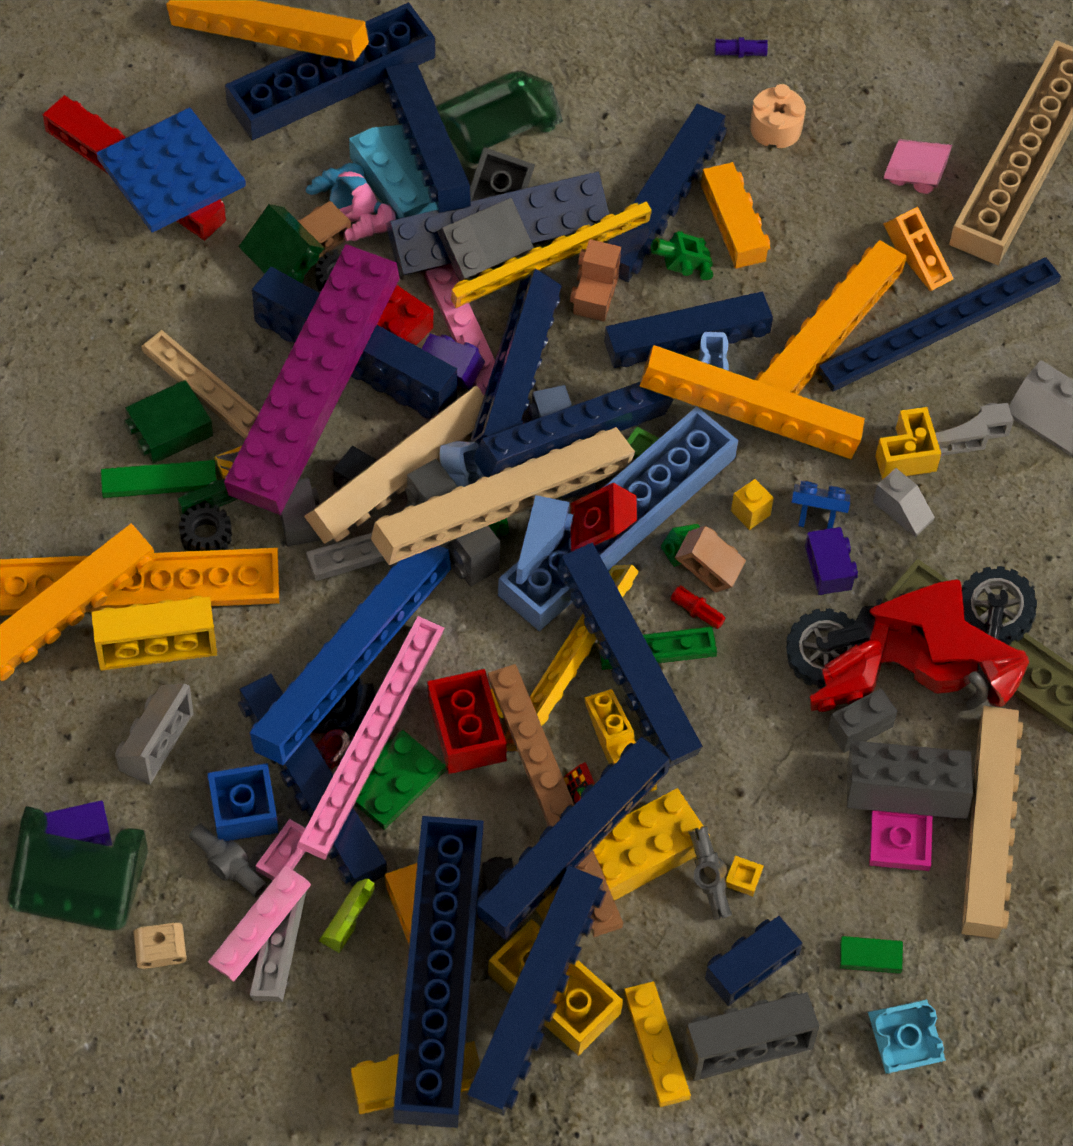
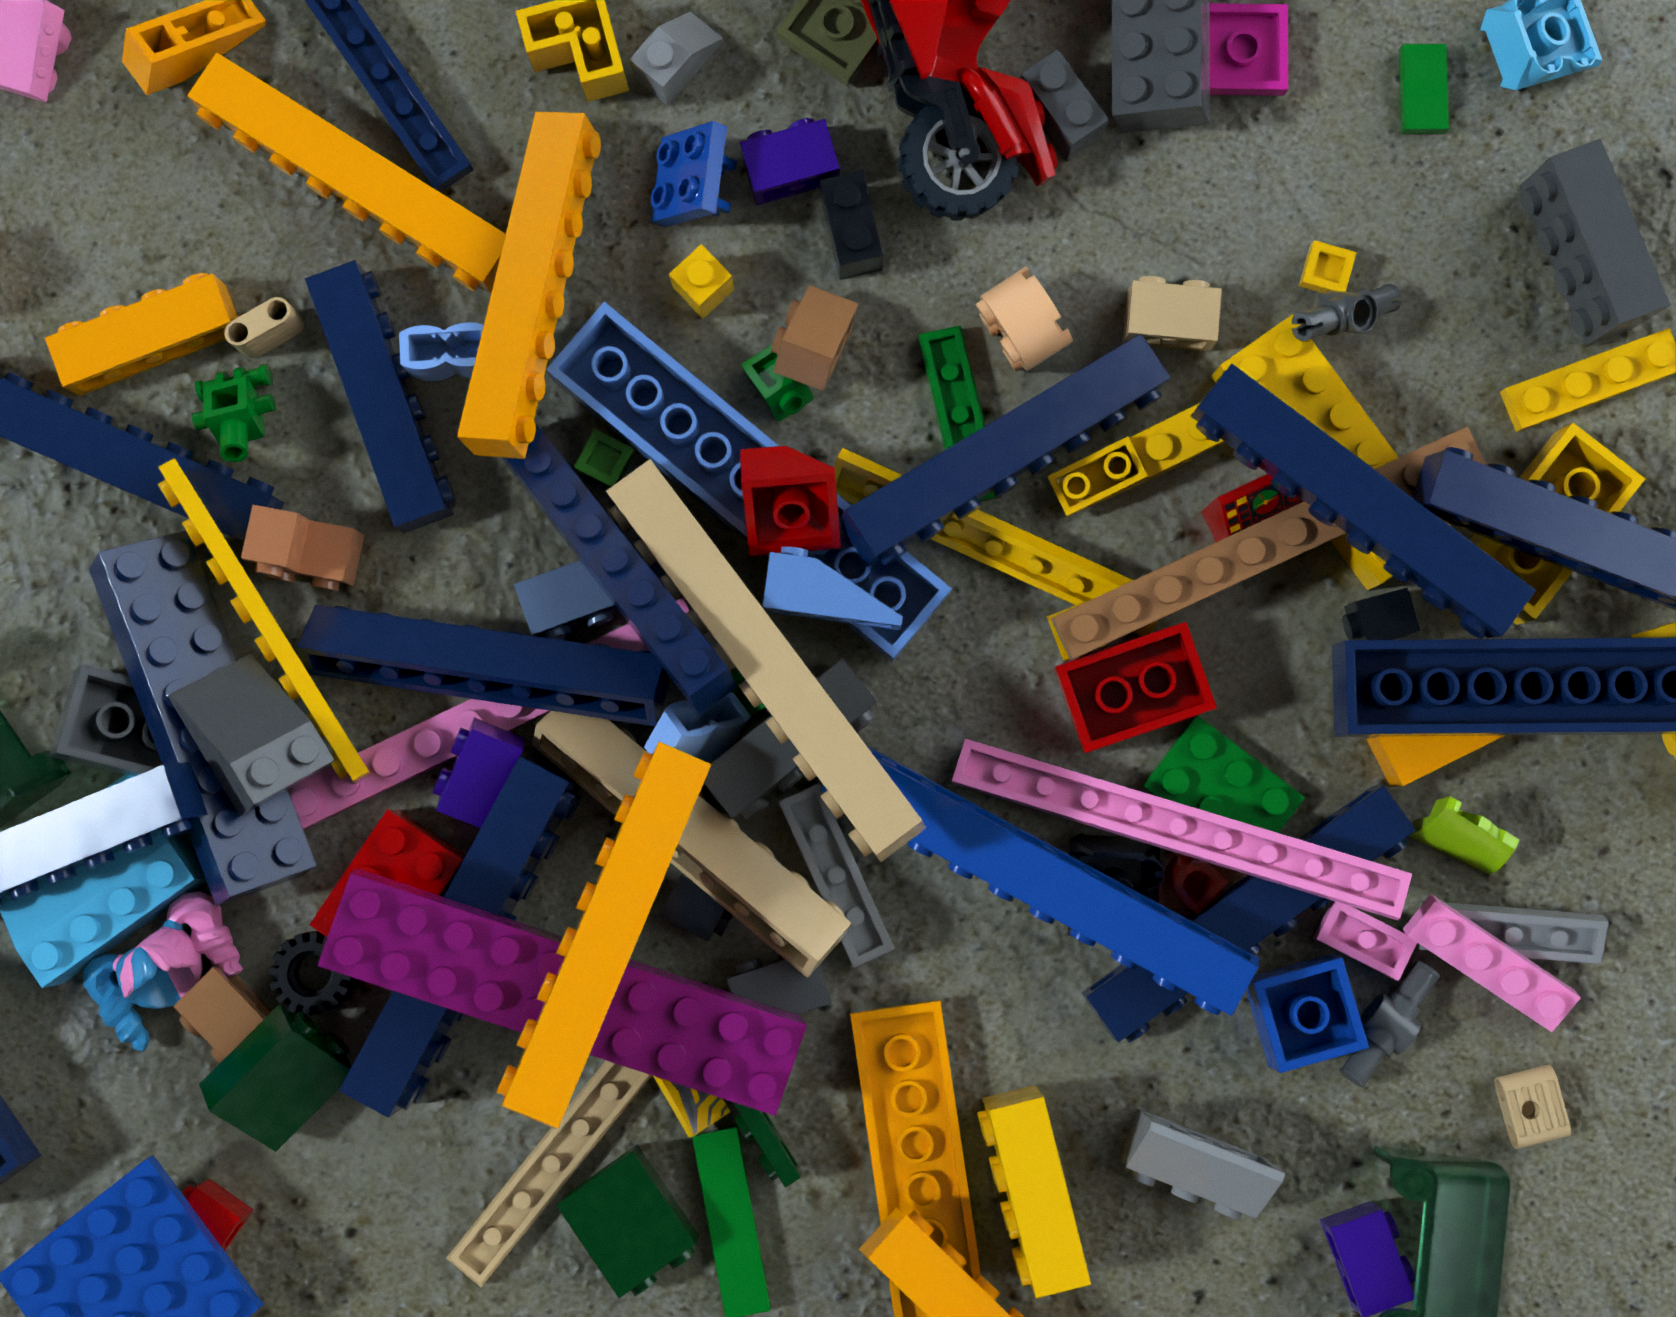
camera: 90 degrees left, 25 degrees up
(205, 516) = (817, 1160): black tyre -> none
(346, 386) = (605, 936): none -> light orange brick
(697, 607) = (888, 356): red axle -> none
(715, 679) = (1025, 320): none -> light nougat brick
(716, 774) = (1173, 313): none -> tan brick
(734, 272) = (264, 327): none -> tan piece
(752, 959) = (1460, 249): dark blue brick -> none
(785, 590) = (851, 225): none -> black brick

